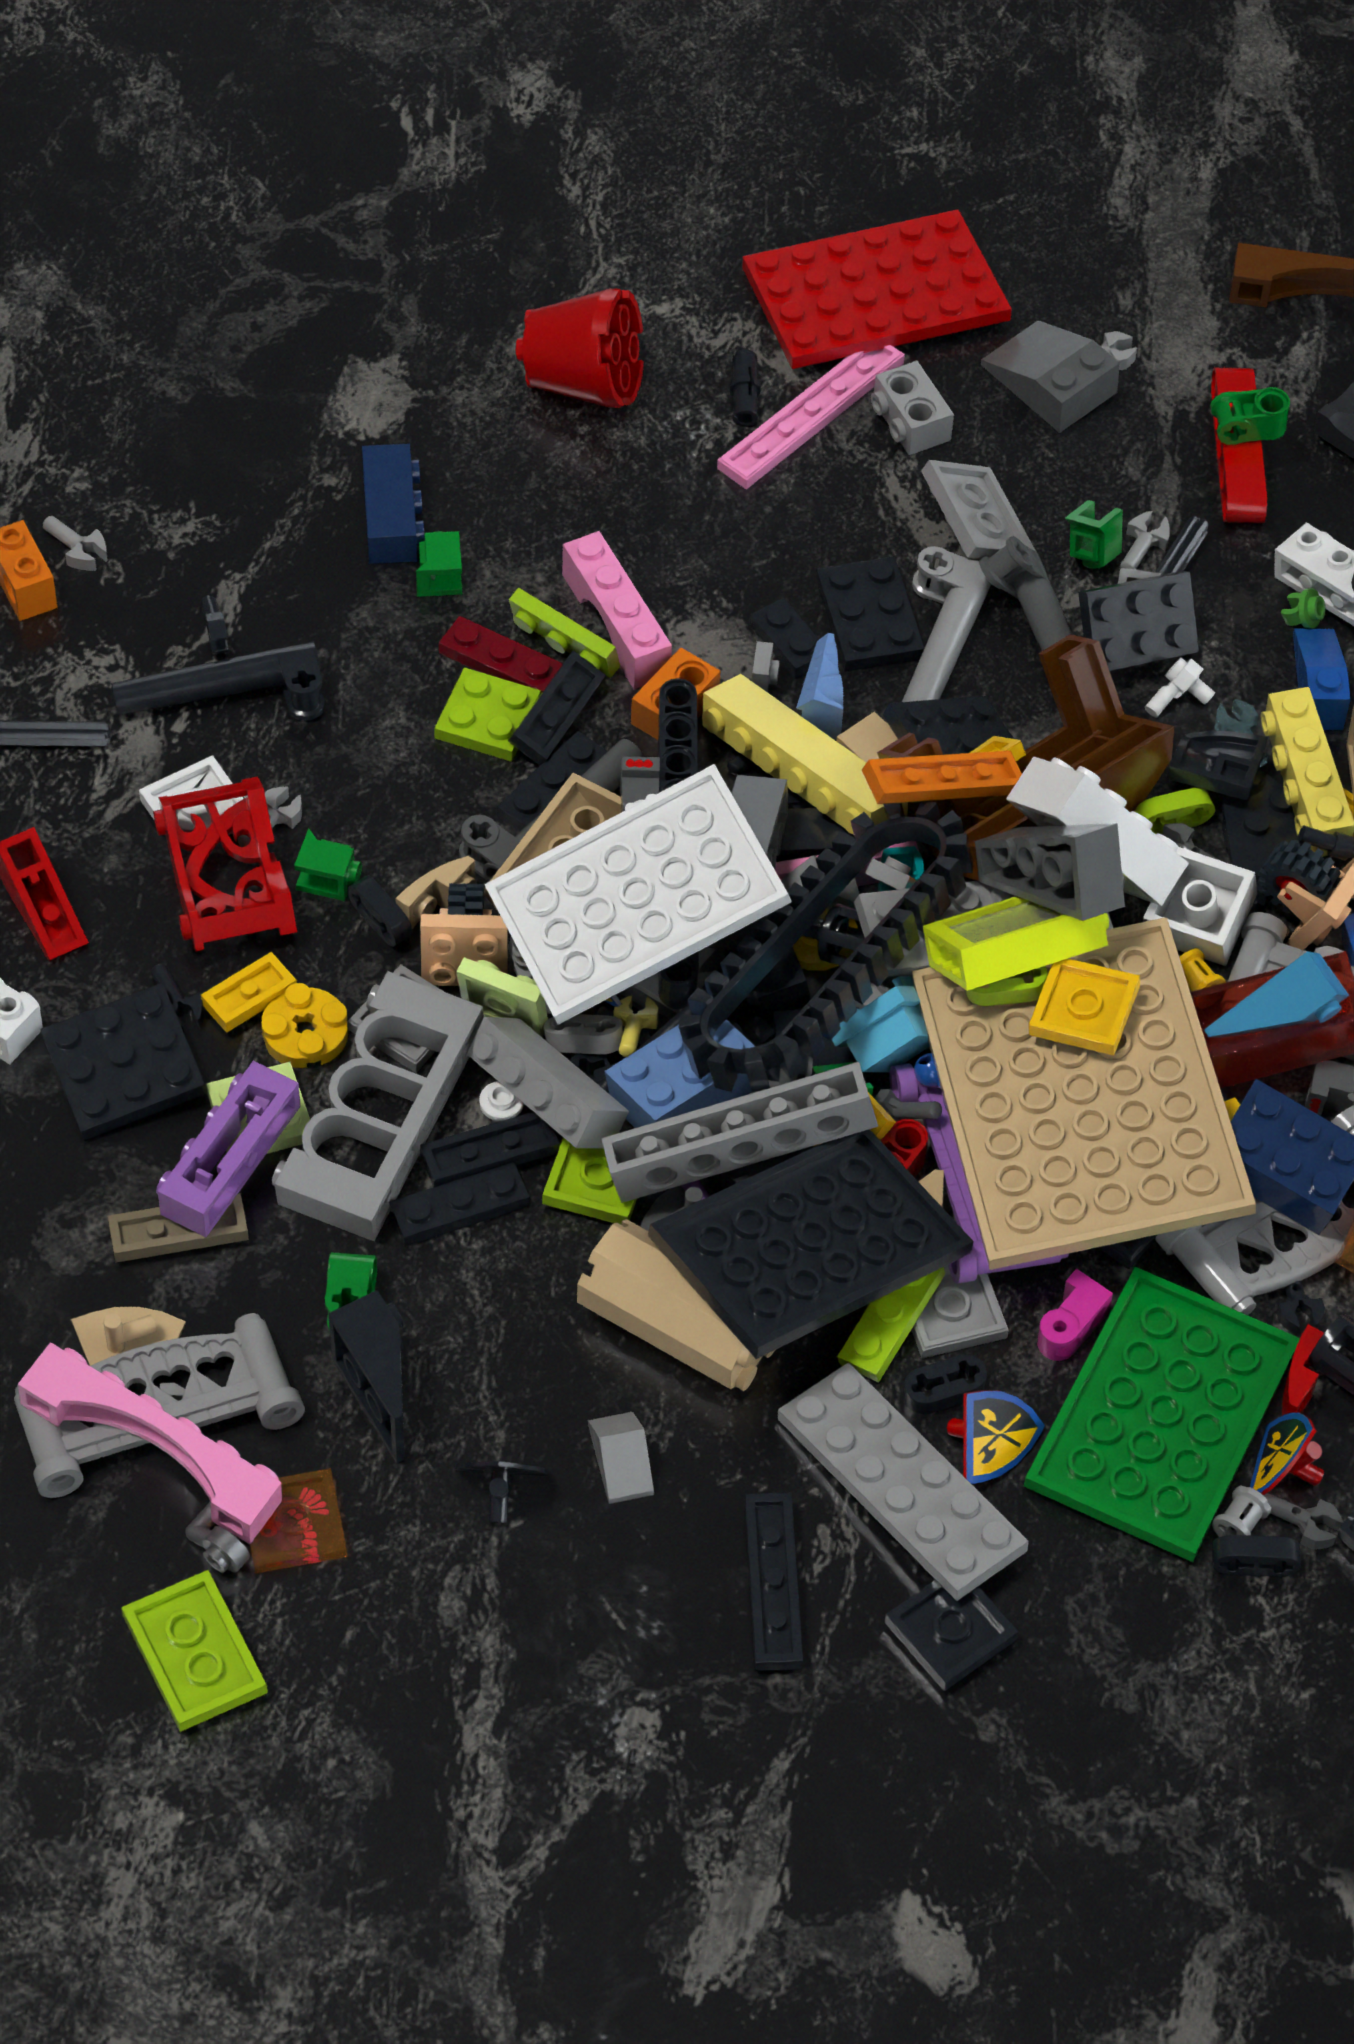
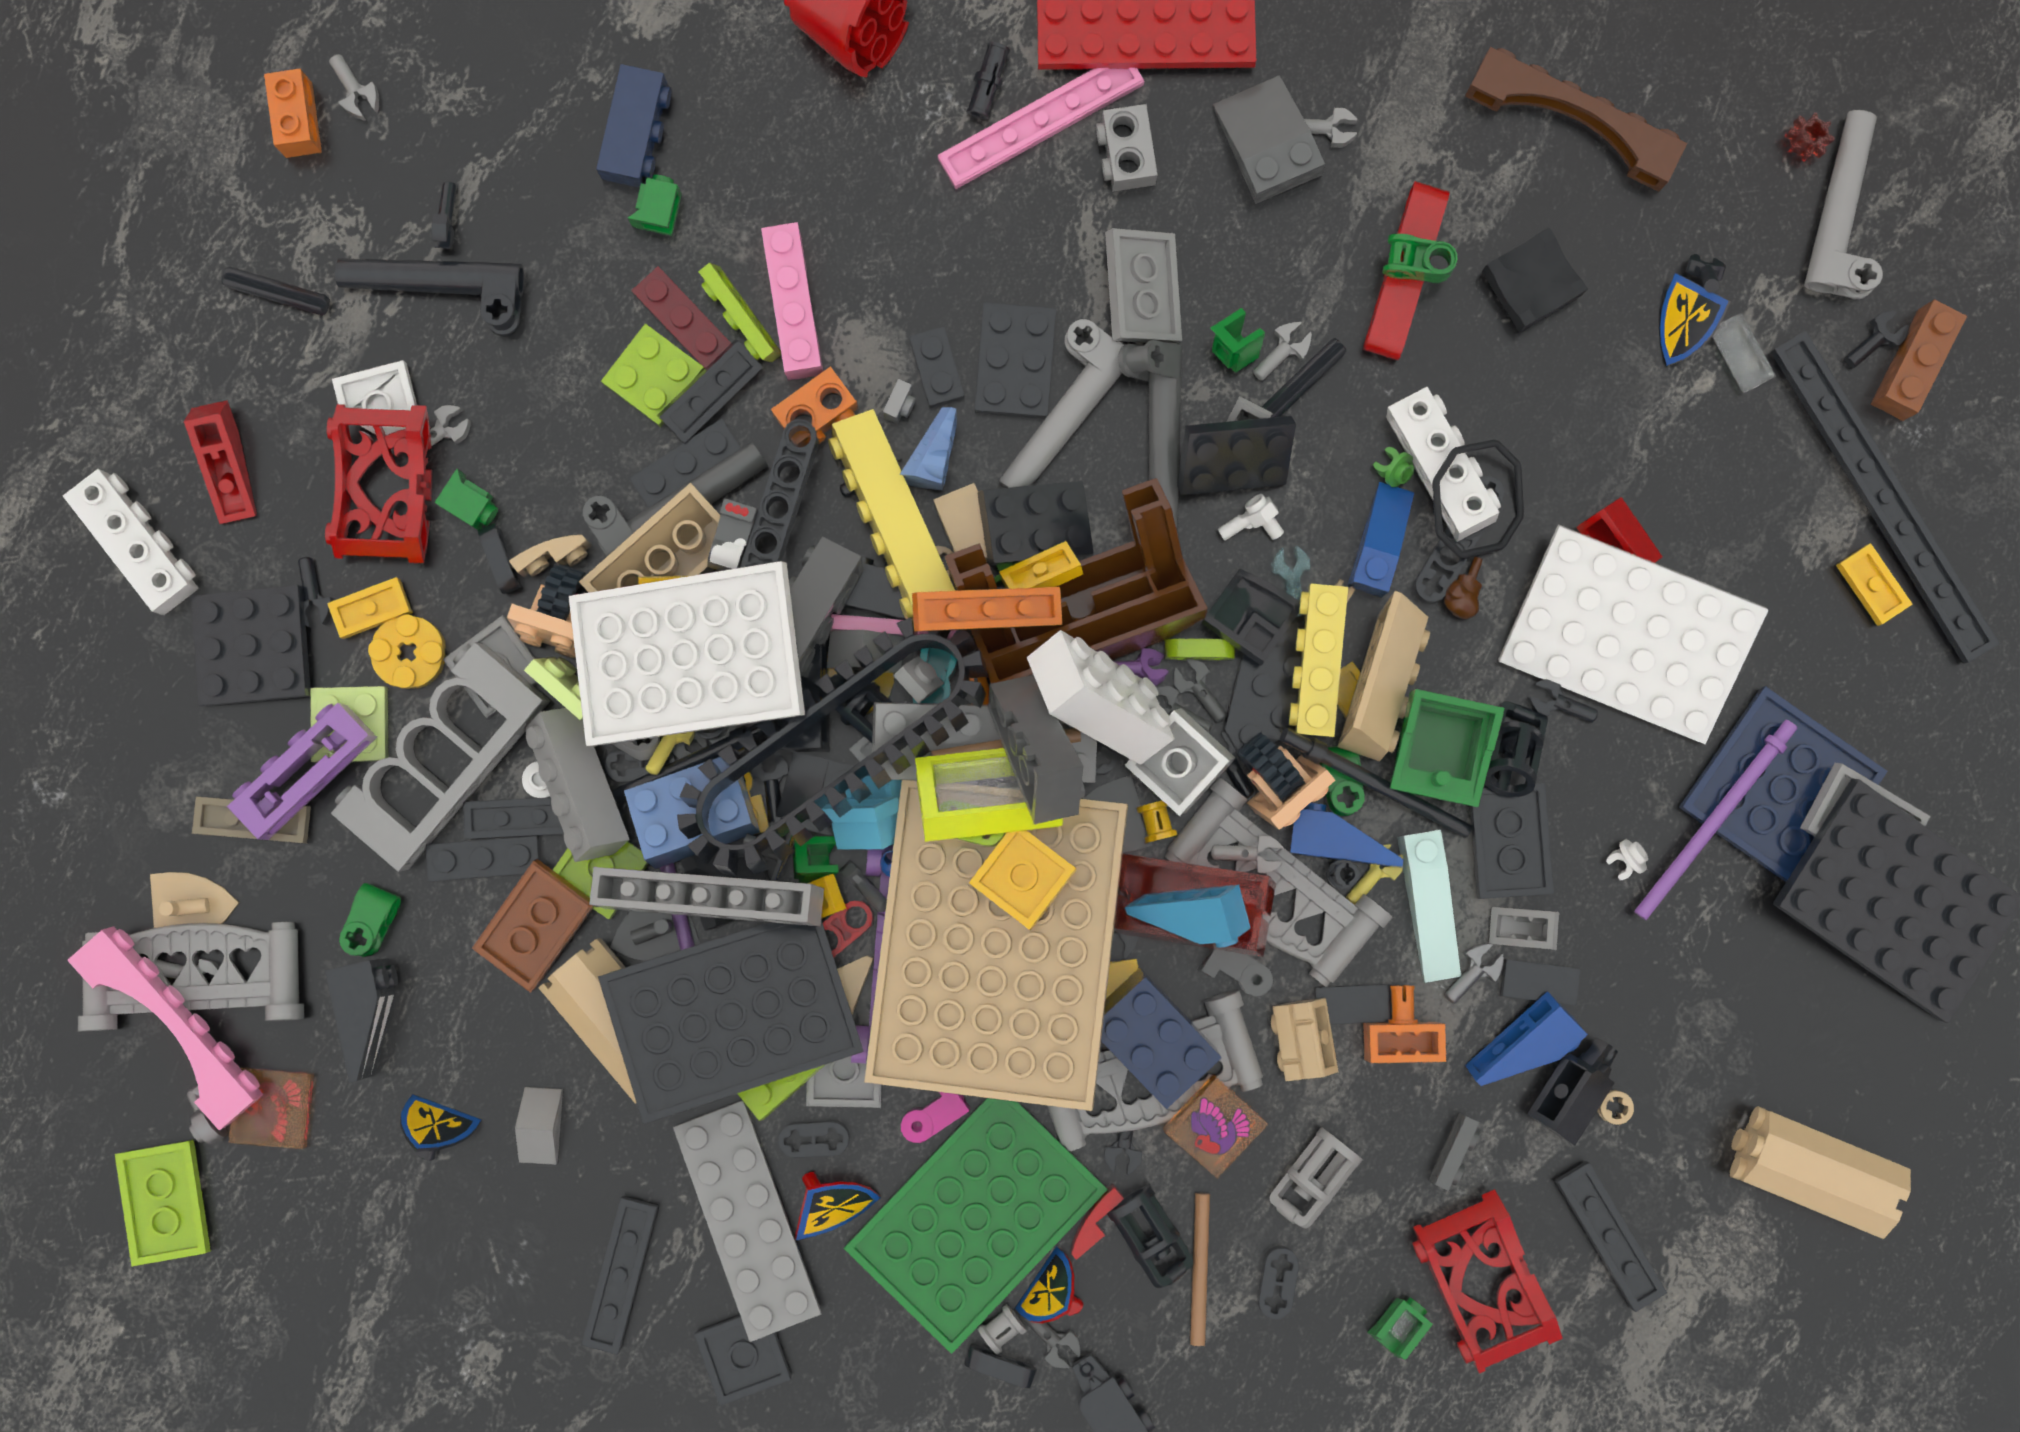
camera: 15 degrees right, 30 degrees up
(543, 1247) = (533, 925): none -> dark orange tile

